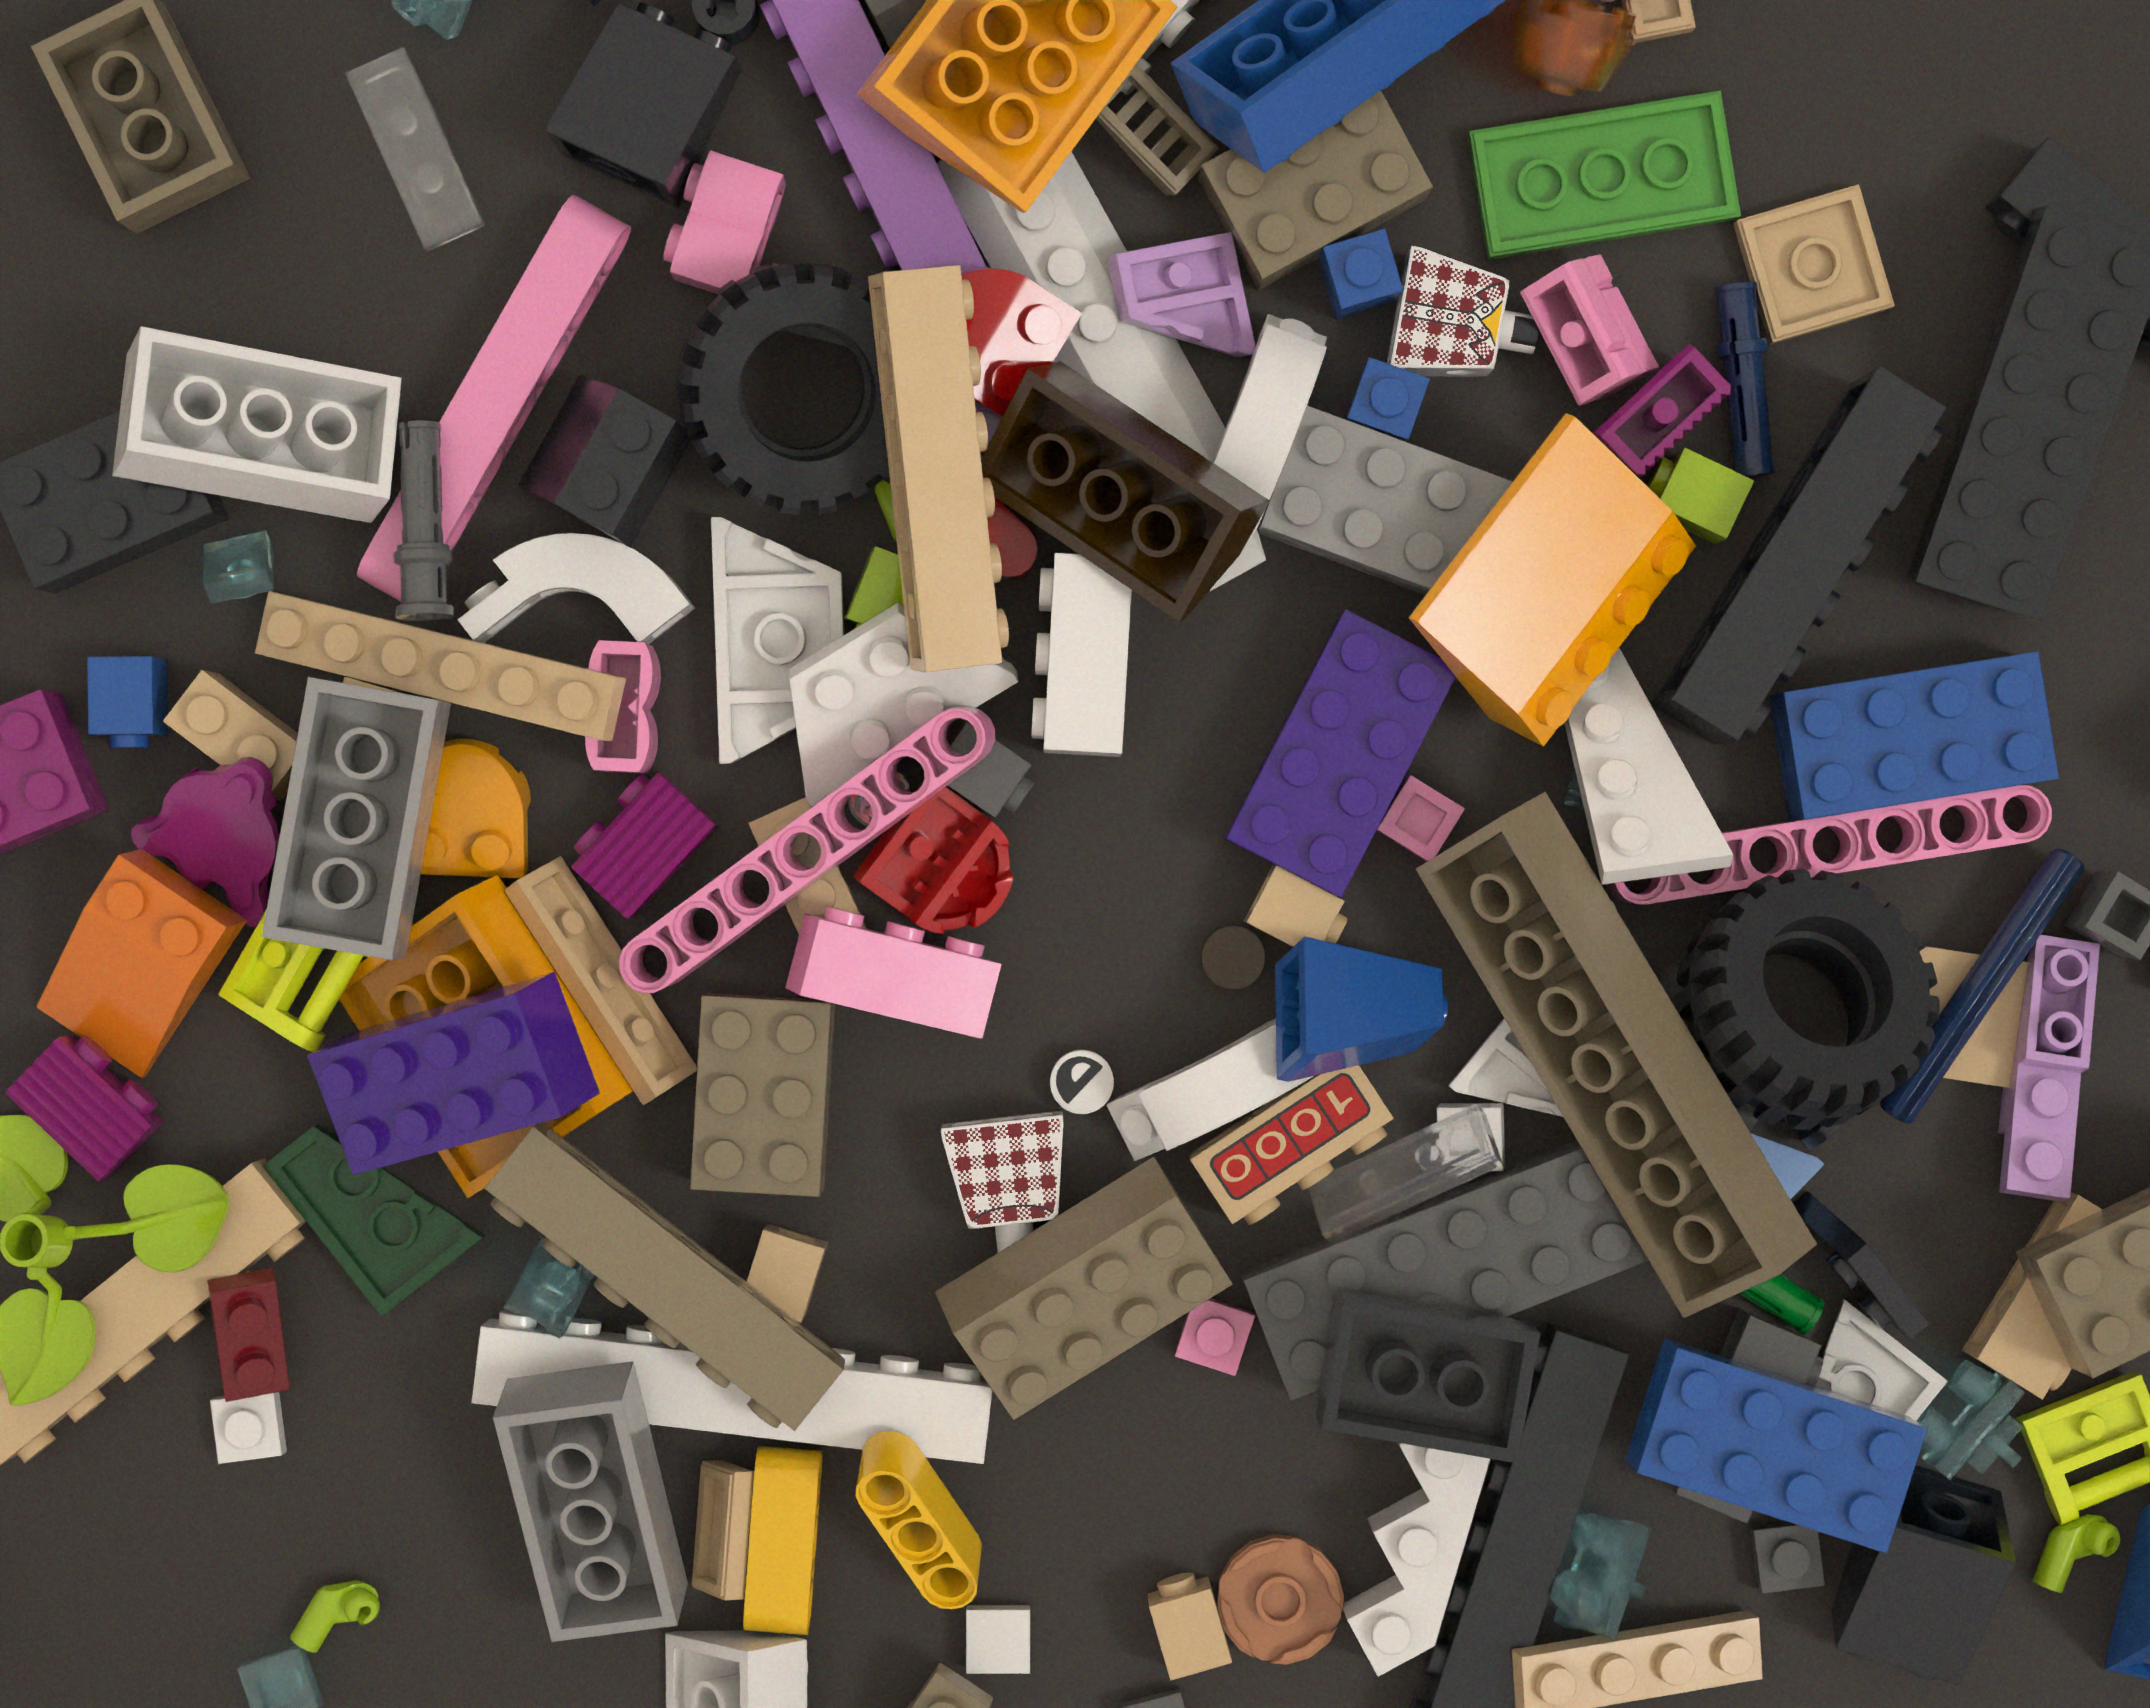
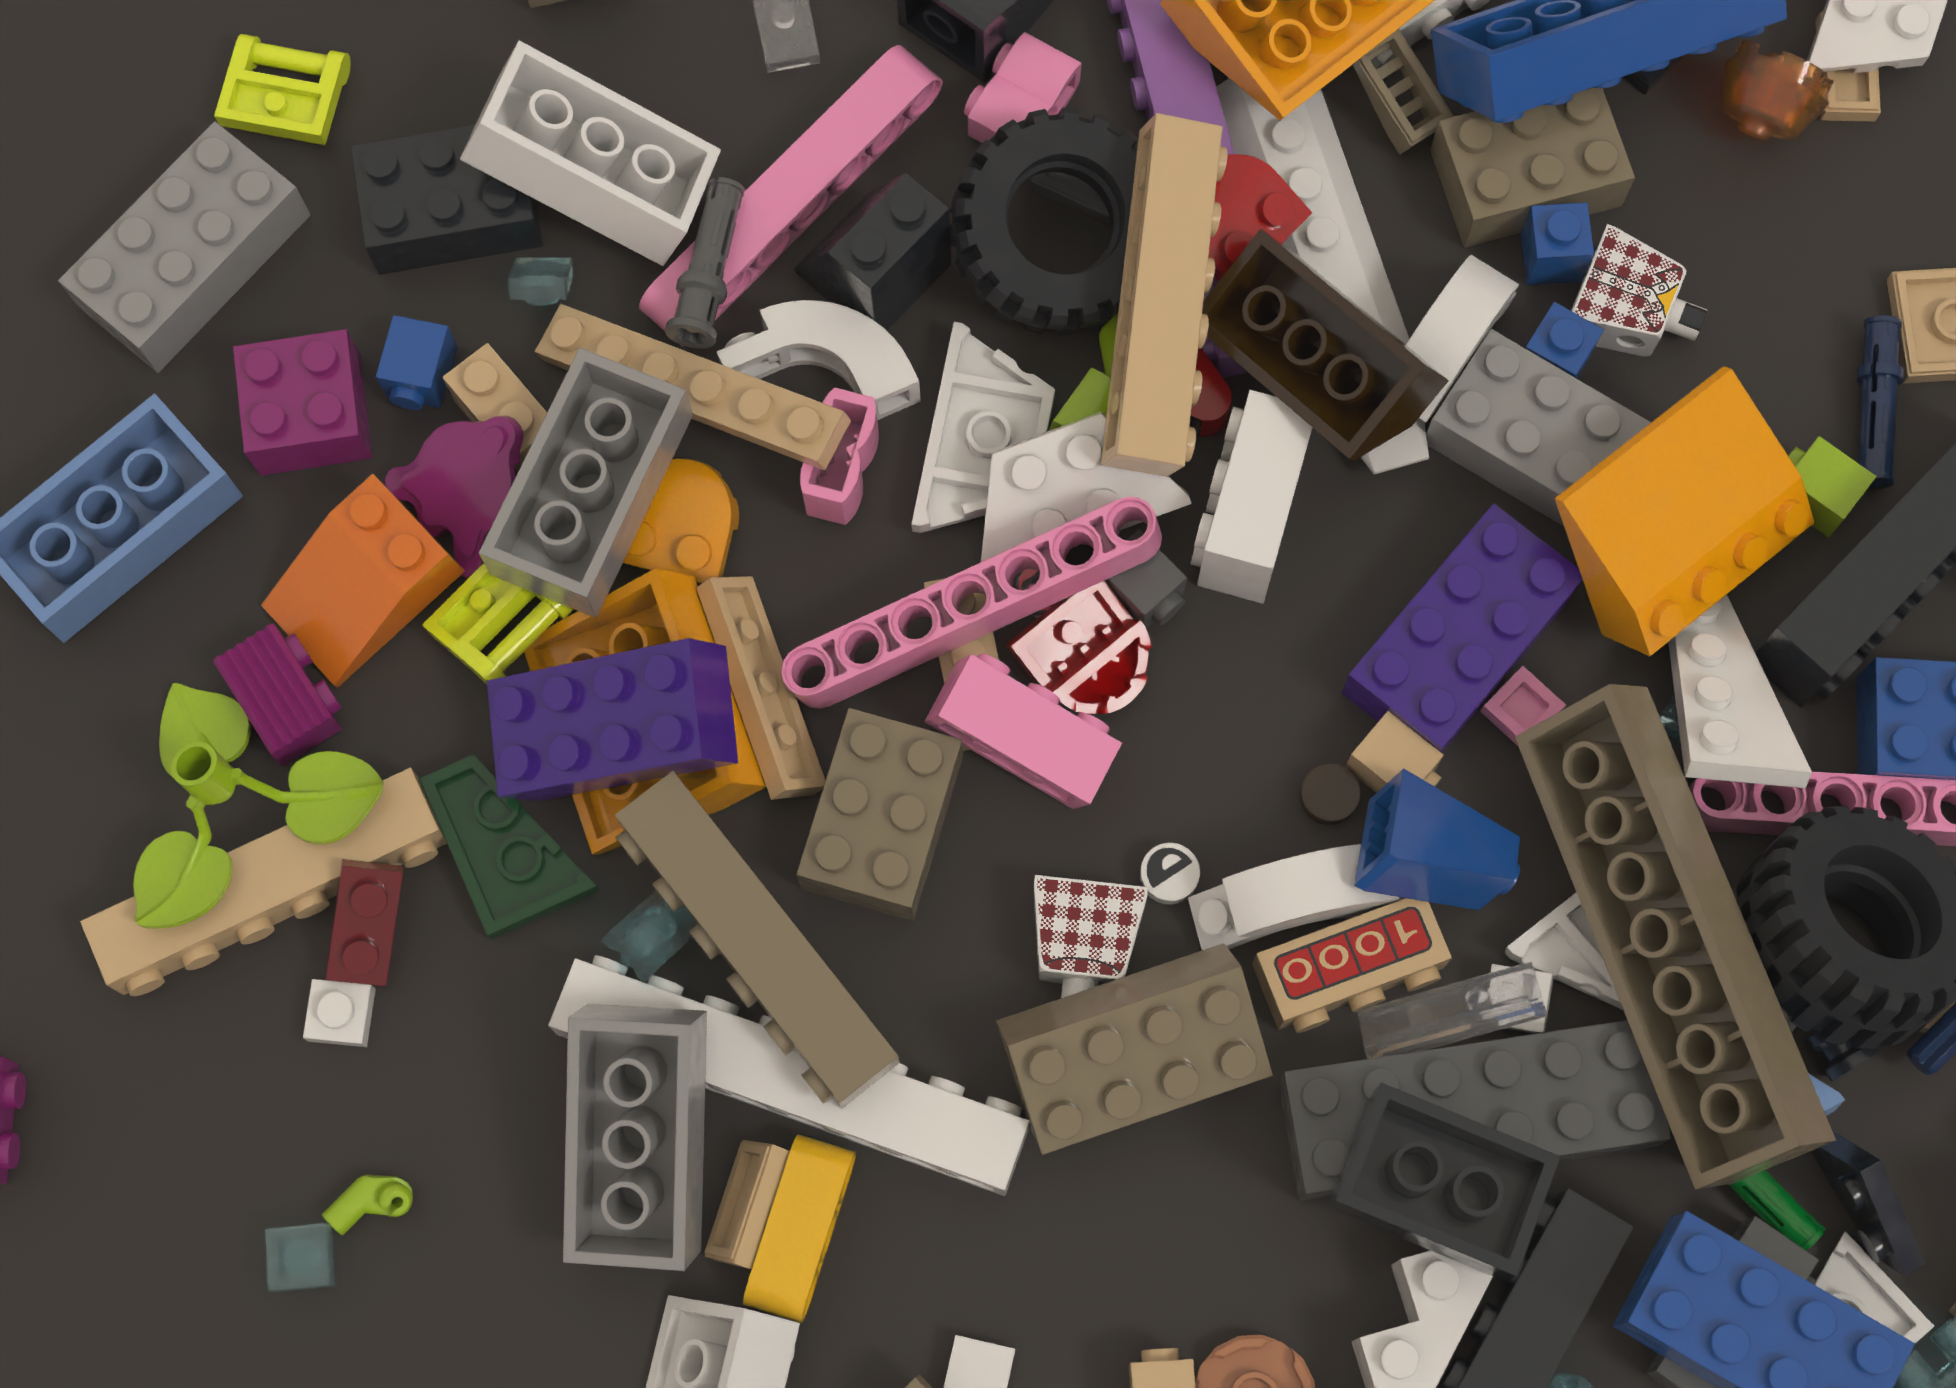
camera: 20 degrees right, 15 degrees down
(642, 844) = (828, 578): magenta brick -> none
(787, 1268) = (867, 972): tan brick -> none
(919, 1519) = (927, 1255): yellow beam -> none
(1186, 293) = (1402, 226): lavender wing -> none
(1215, 1336) = (1243, 1131): bright pink plate -> none
(1589, 329) = (1749, 325): bright pink brick -> none
(1604, 175) = (1781, 215): bright green tile -> none
(1663, 410) = (1812, 399): magenta brick -> none

